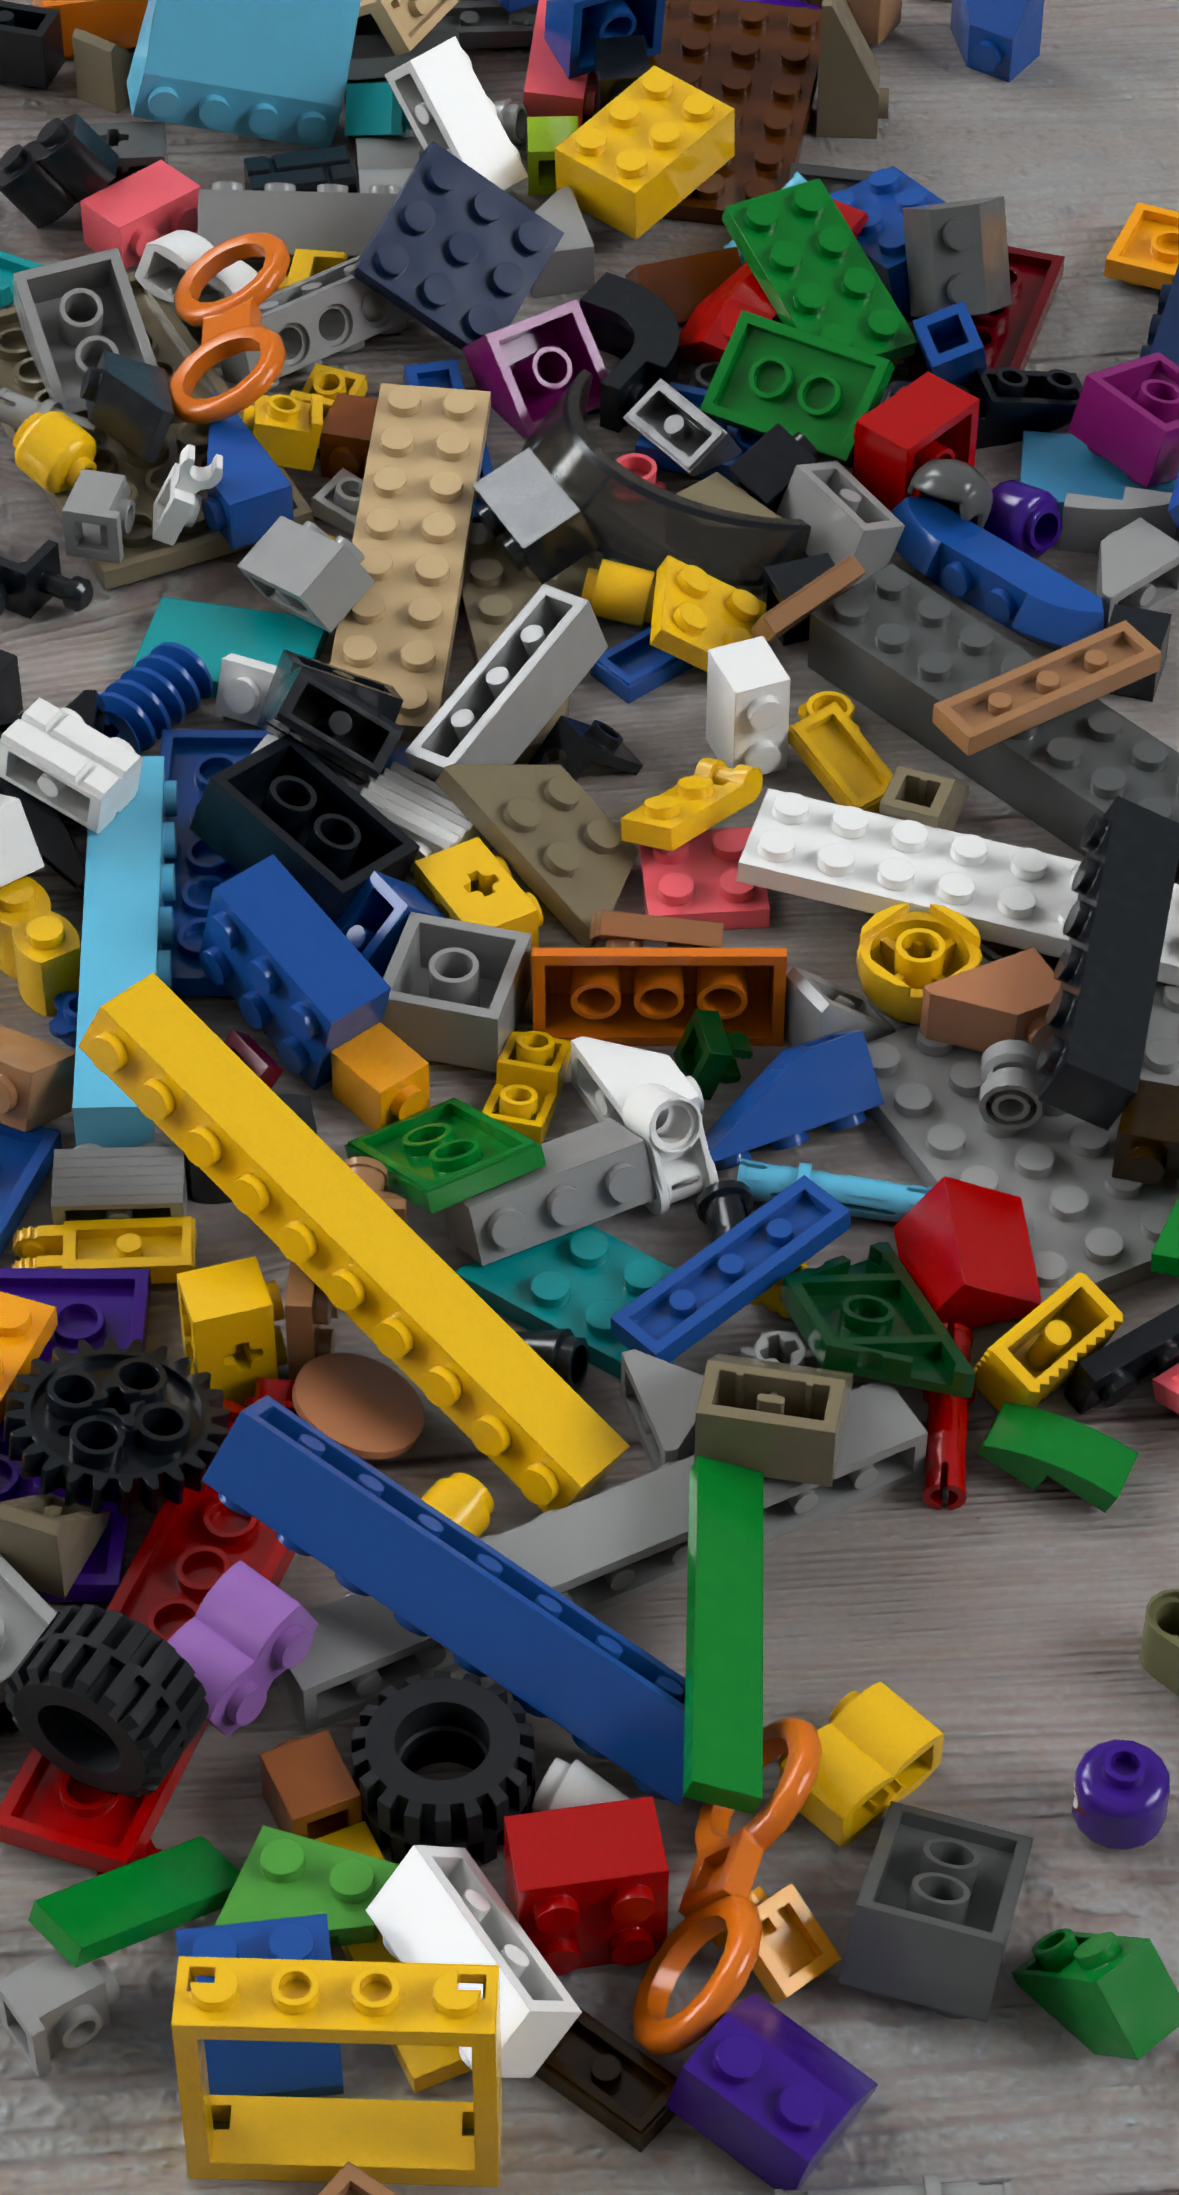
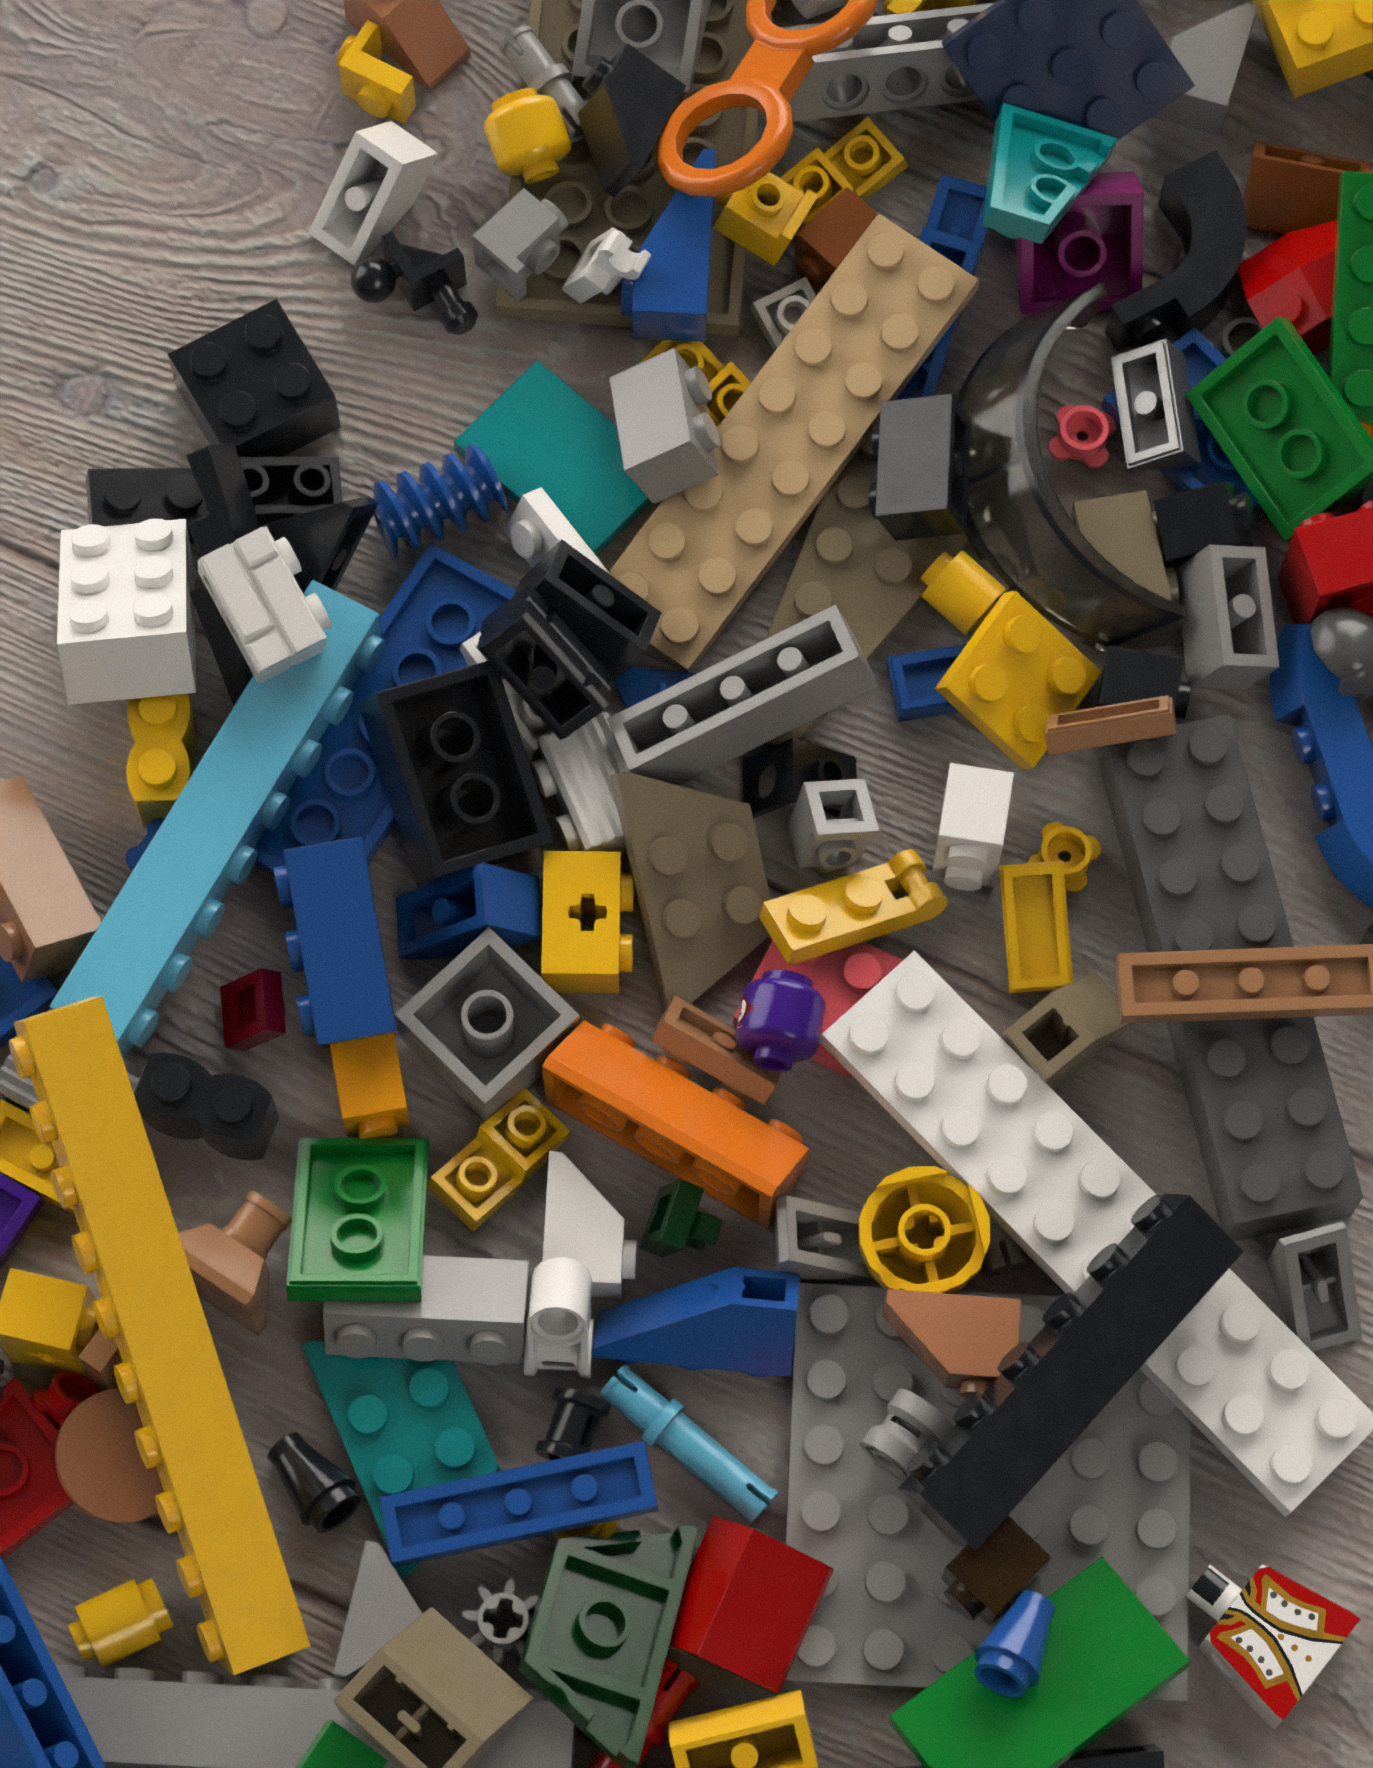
camera: 30 degrees right, 25 degrees up
(483, 310) = (1038, 171): none -> teal wing
(633, 758) = (833, 840): none -> light grey brick
(695, 877) = (780, 1020): none -> dark purple head

